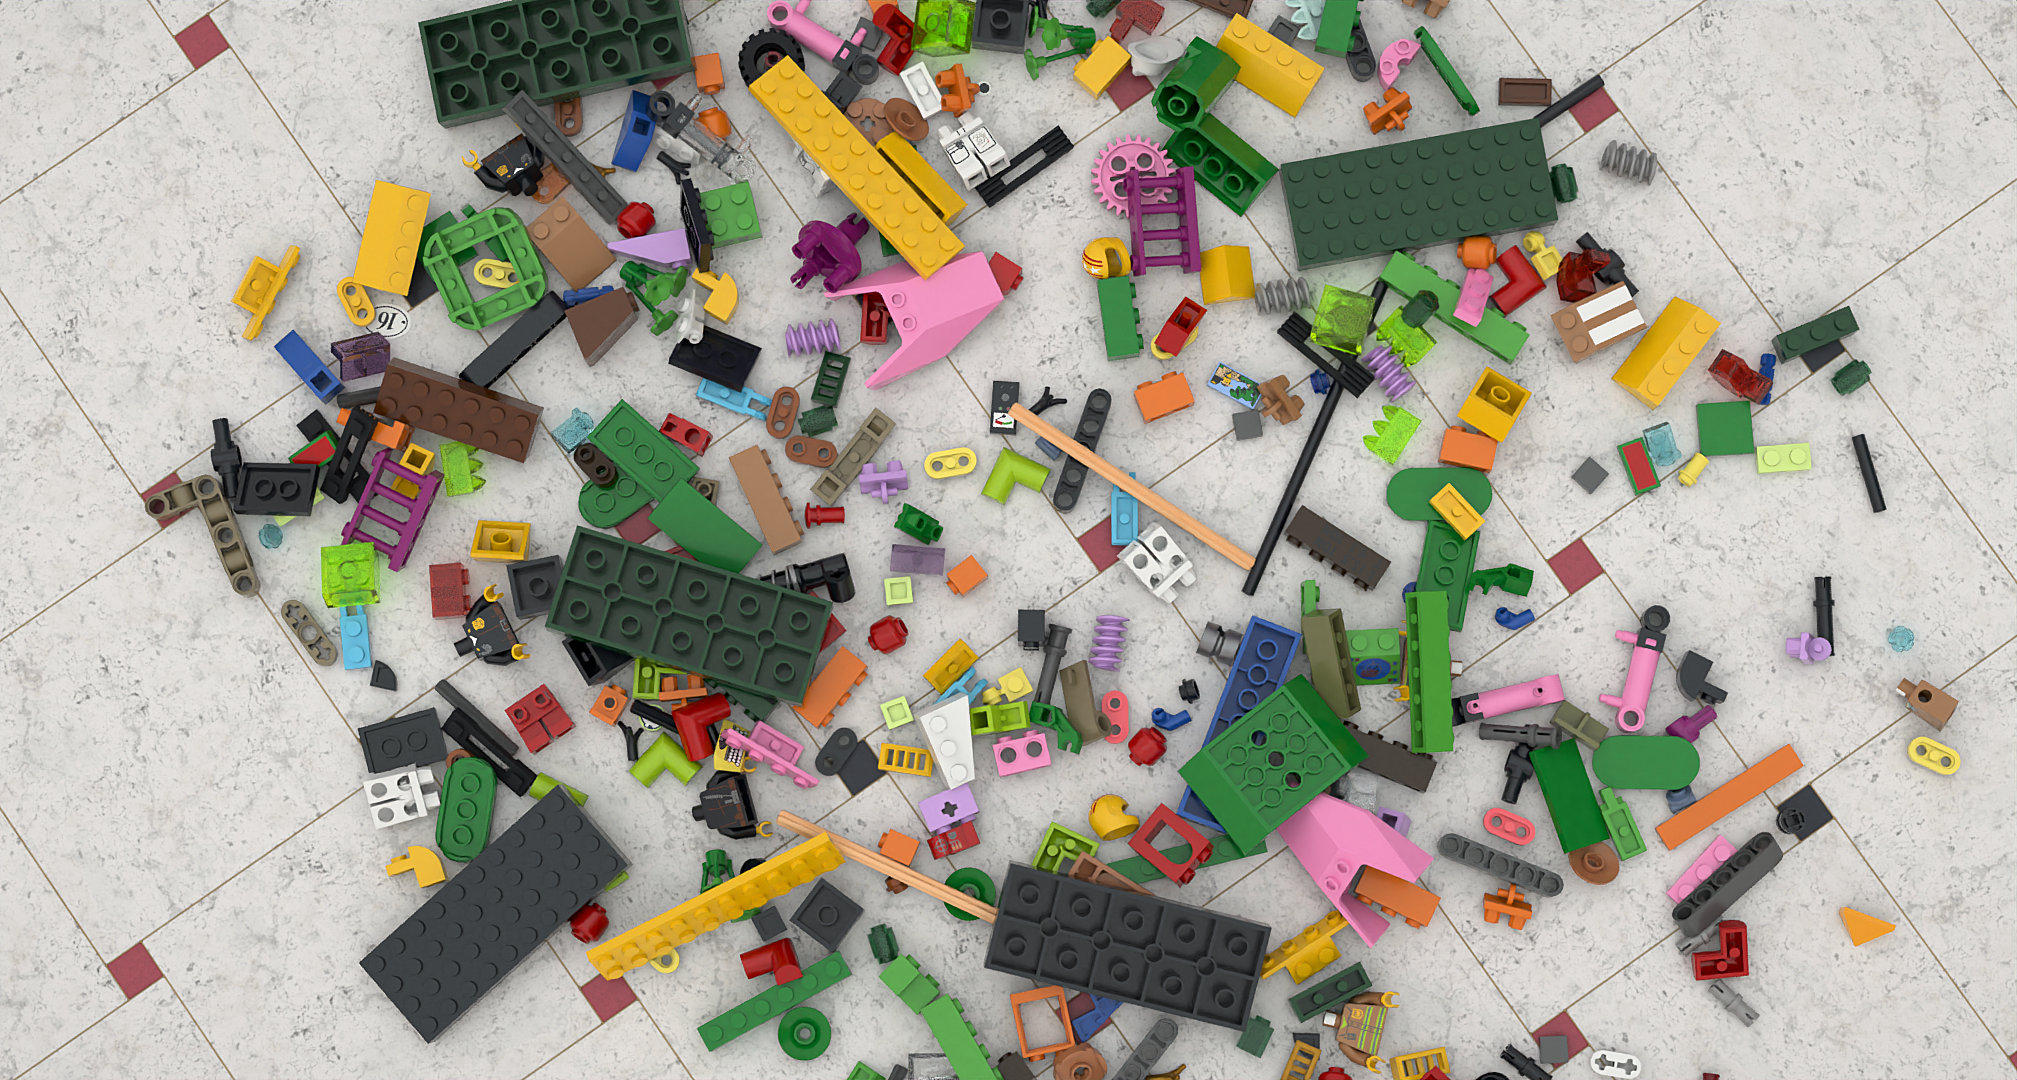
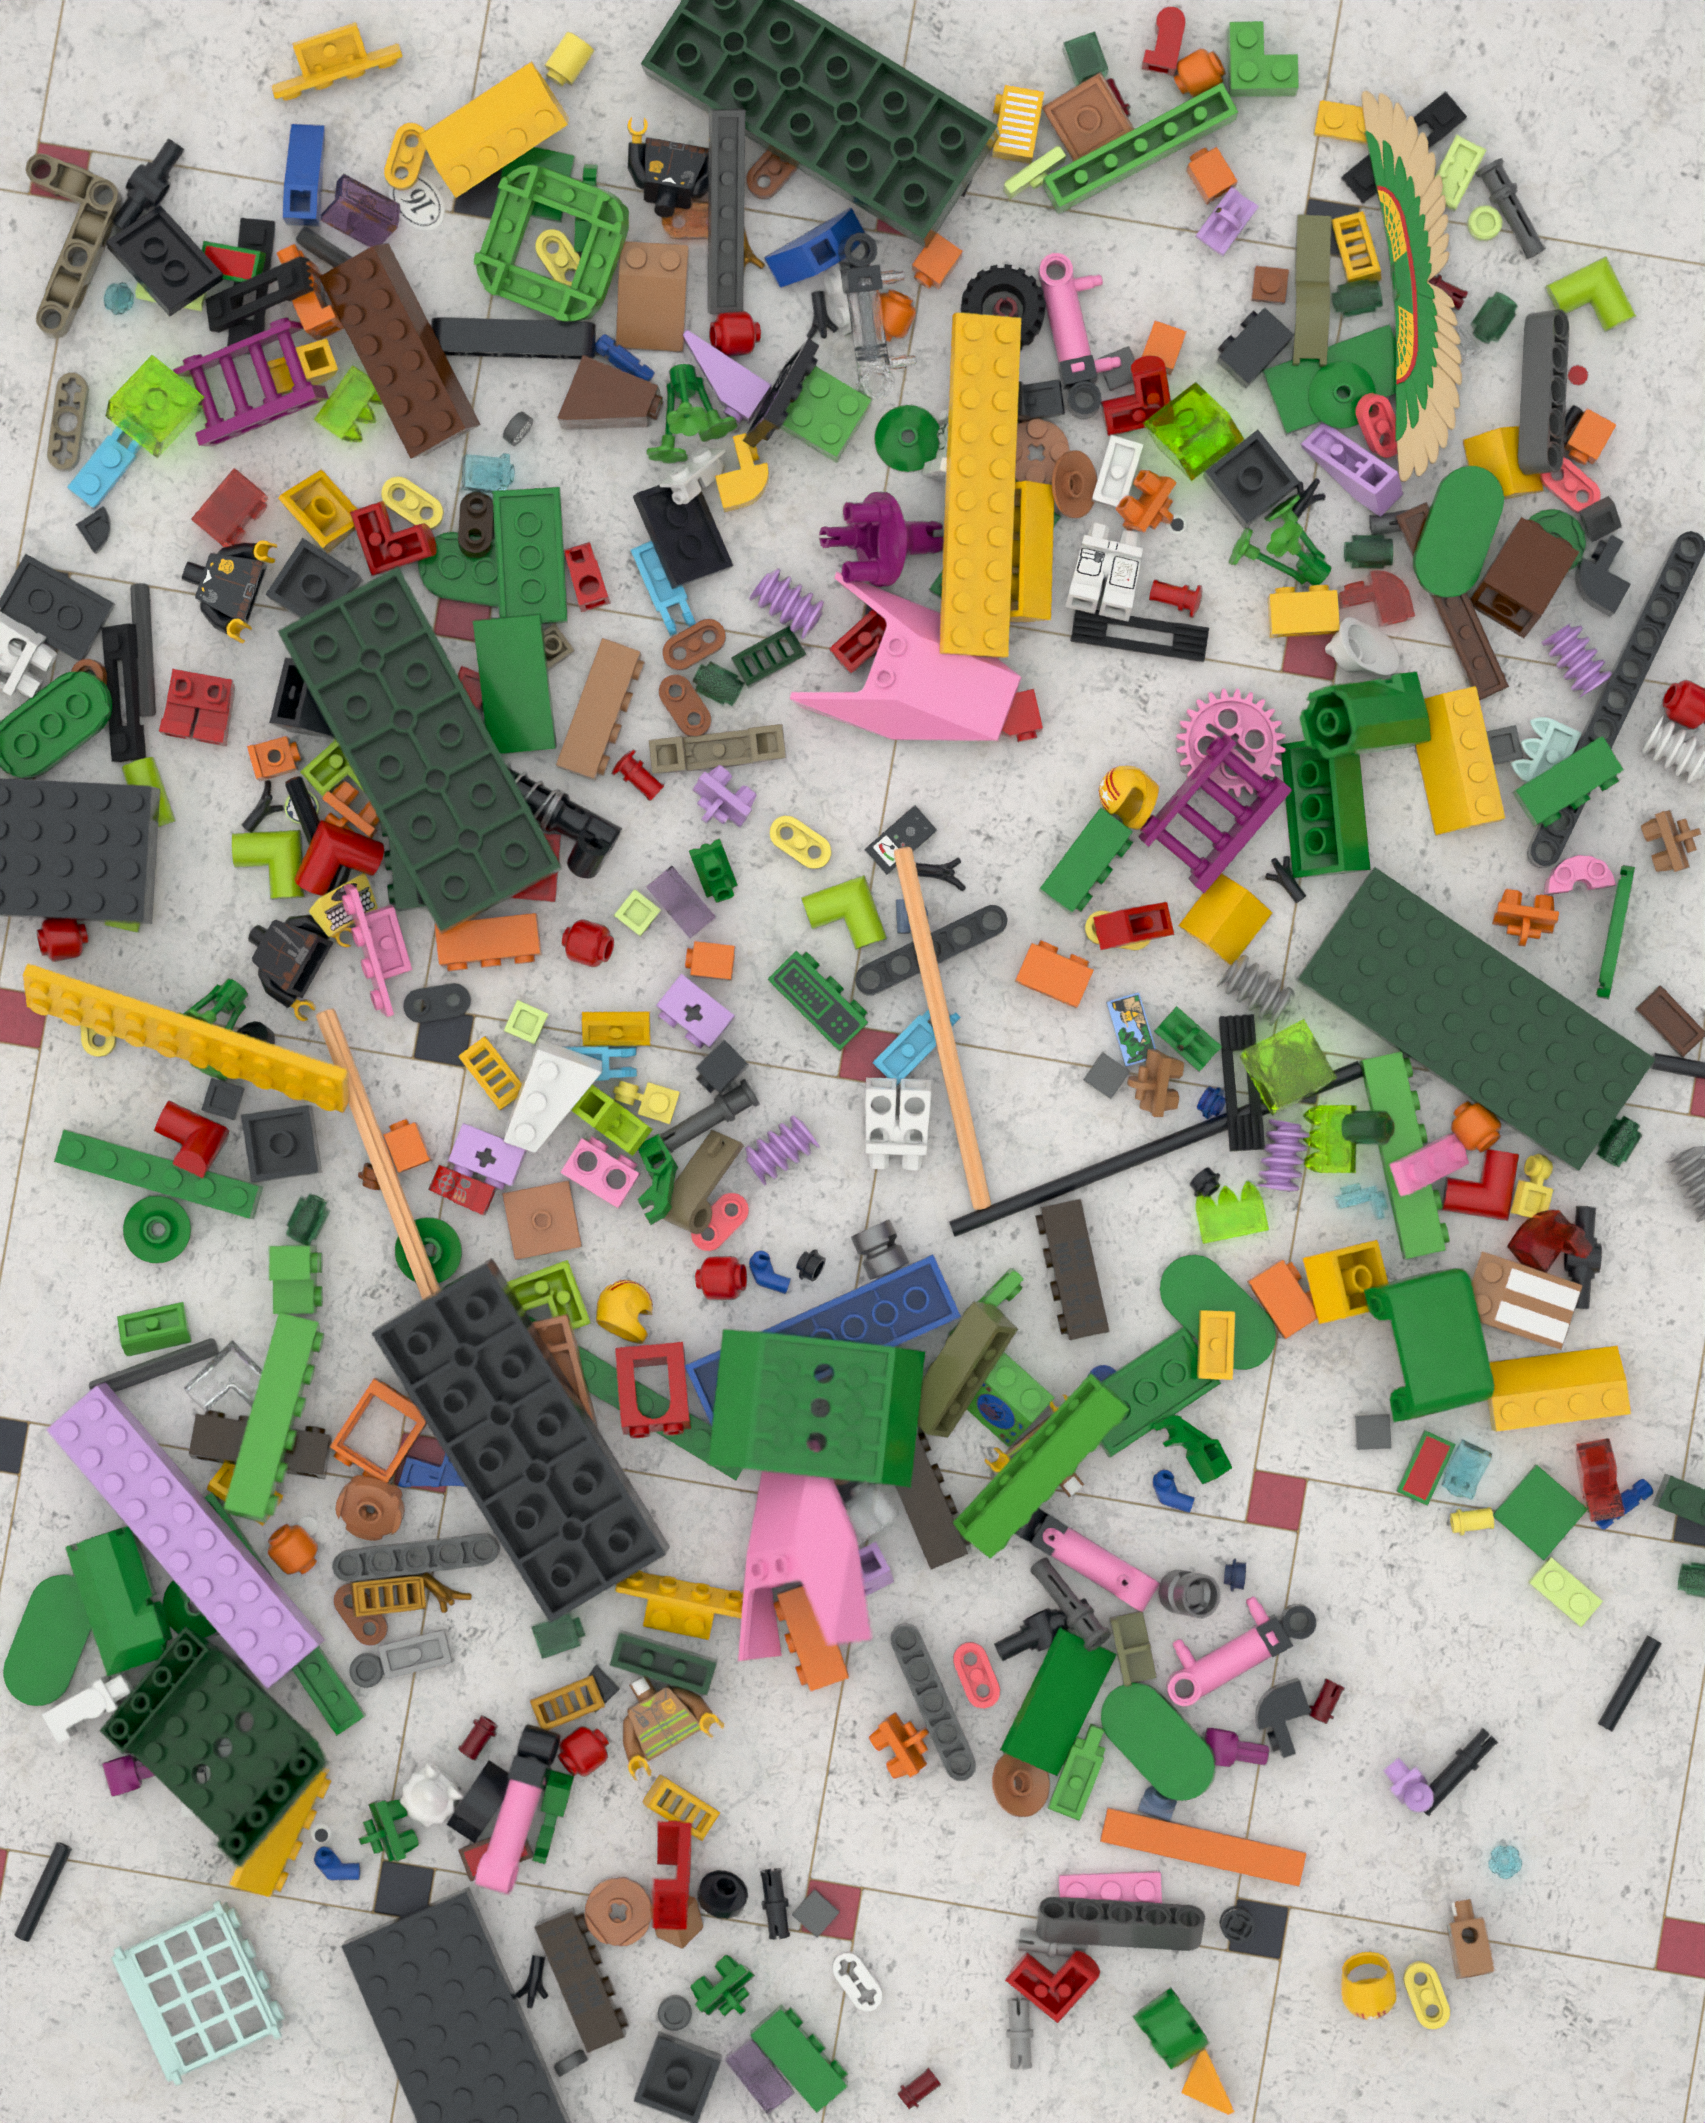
camera: 45 degrees right, 5 degrees up
(394, 161) = (568, 59): none -> light yellow brick
(548, 486) = (413, 503): none -> light yellow plate
(556, 527) = (387, 549): none -> red brick
(566, 389) = (517, 428): none -> dark grey tile
(788, 198) = (903, 455): none -> green dish
(998, 605) = (685, 994): none -> lavender brick
(1015, 814) = (542, 1220): none -> nougat plate
(1023, 125) = (1177, 596): none -> red pin
(1047, 539) = (819, 999): none -> brick
(1237, 220) = (1286, 879): none -> black bar
(1272, 359) = (1187, 1039): none -> green hips
(1361, 429) = (1205, 1183): none -> black plate
(1449, 355) = (1354, 1195): none -> clear light blue bracket
(1577, 388) = (1436, 1342): none -> green windscreen
(1580, 662) = (1189, 1593): none -> flat silver wheel
(1595, 628) = (1235, 1575): none -> dark blue plate
(1715, 648) = (1326, 1701): none -> dark red pin
(1814, 914) = (1171, 2029): none -> green brick
(1904, 787) = (1371, 1996): none -> yellow helmet

